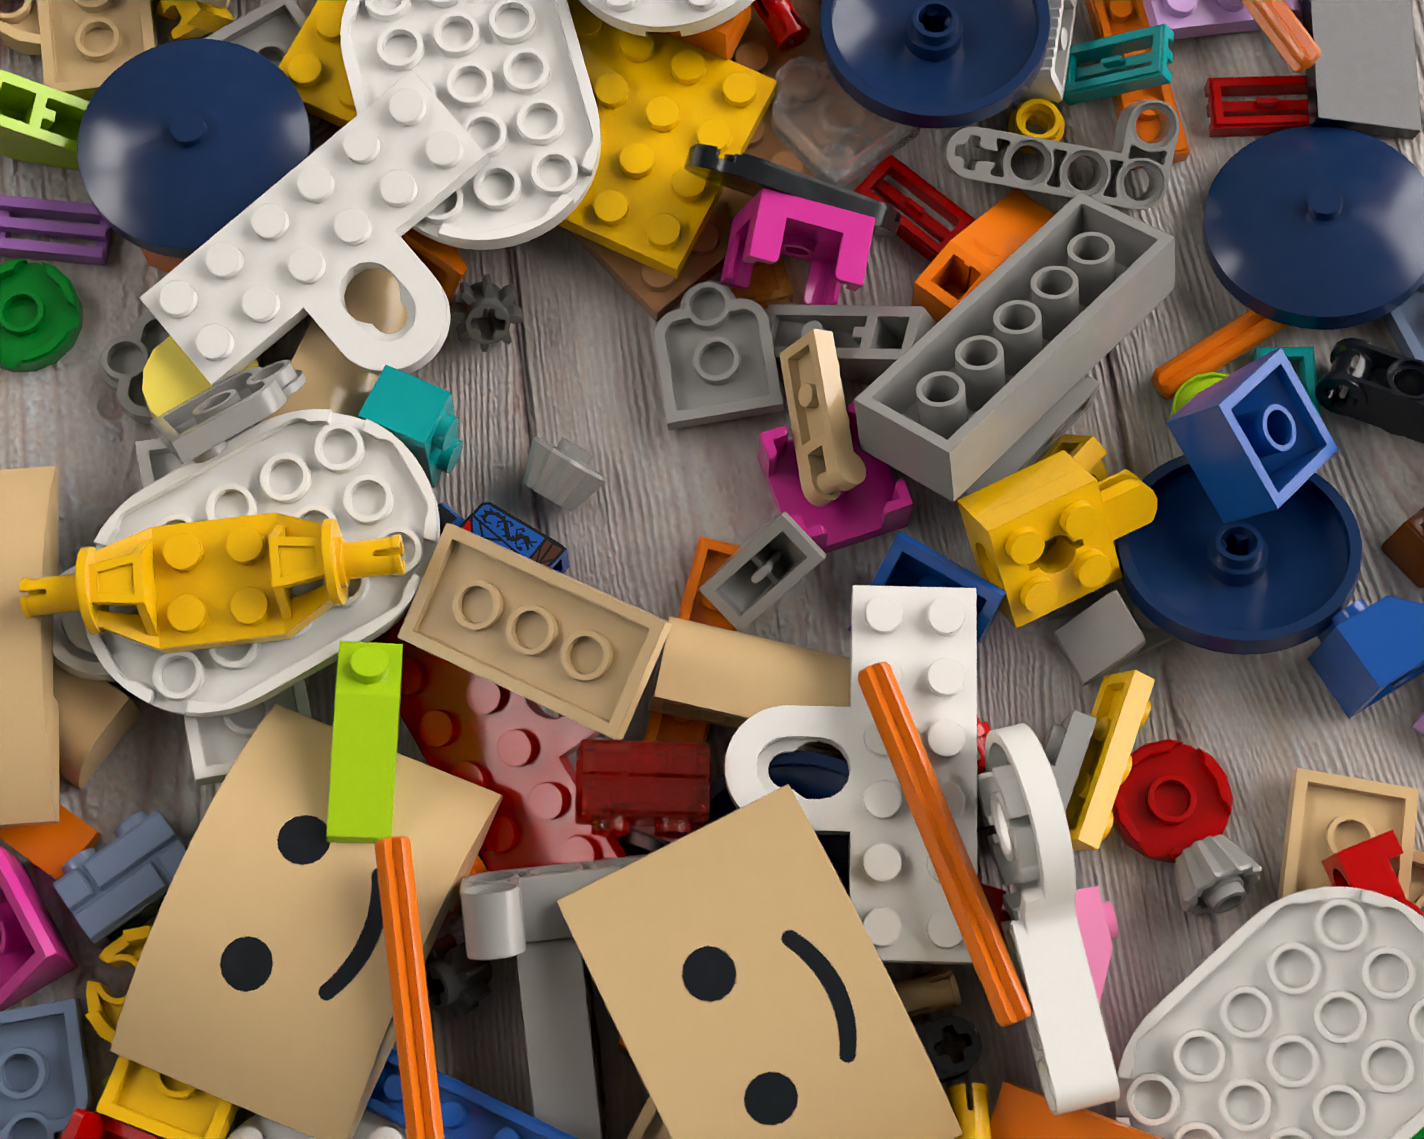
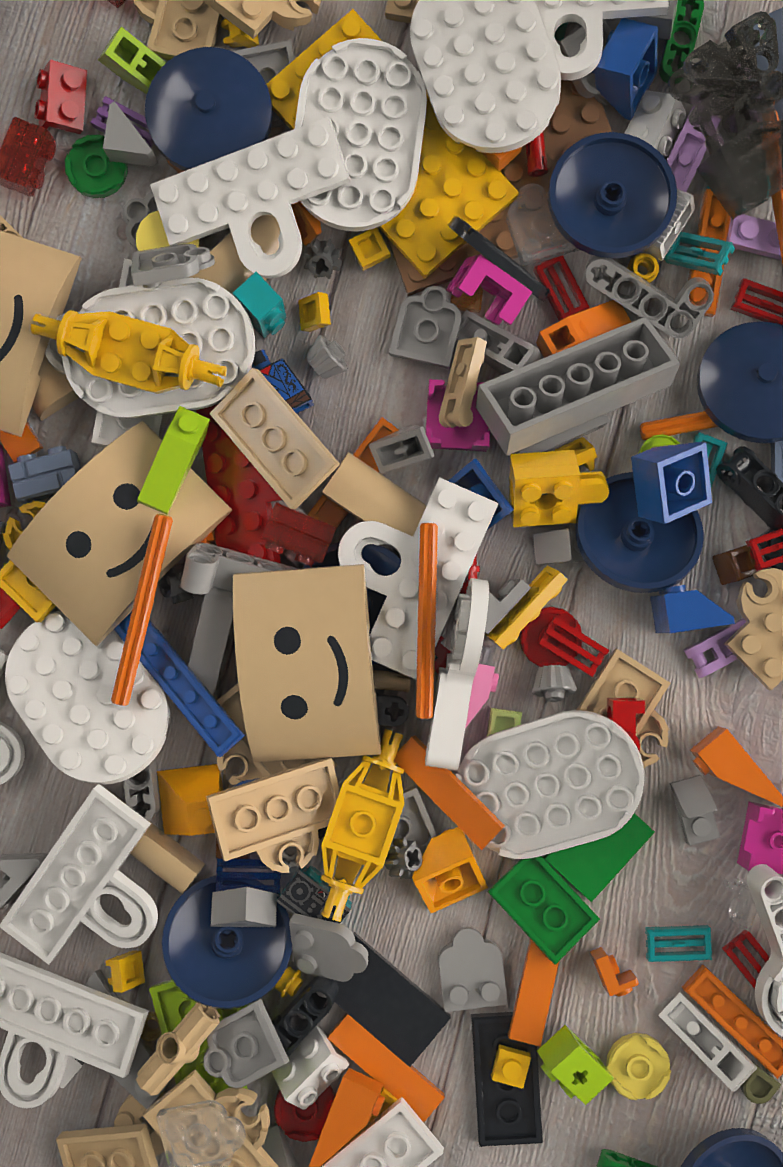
camera: 25 degrees right, 15 degrees up
(67, 250) = (124, 142): none -> light grey slope
(507, 406) = (314, 312): none -> yellow plate
(559, 267) = (369, 248): none -> yellow plate
(1151, 983) = (502, 719): none -> yellowish green tile
(1271, 802) = (596, 660): none -> red tile

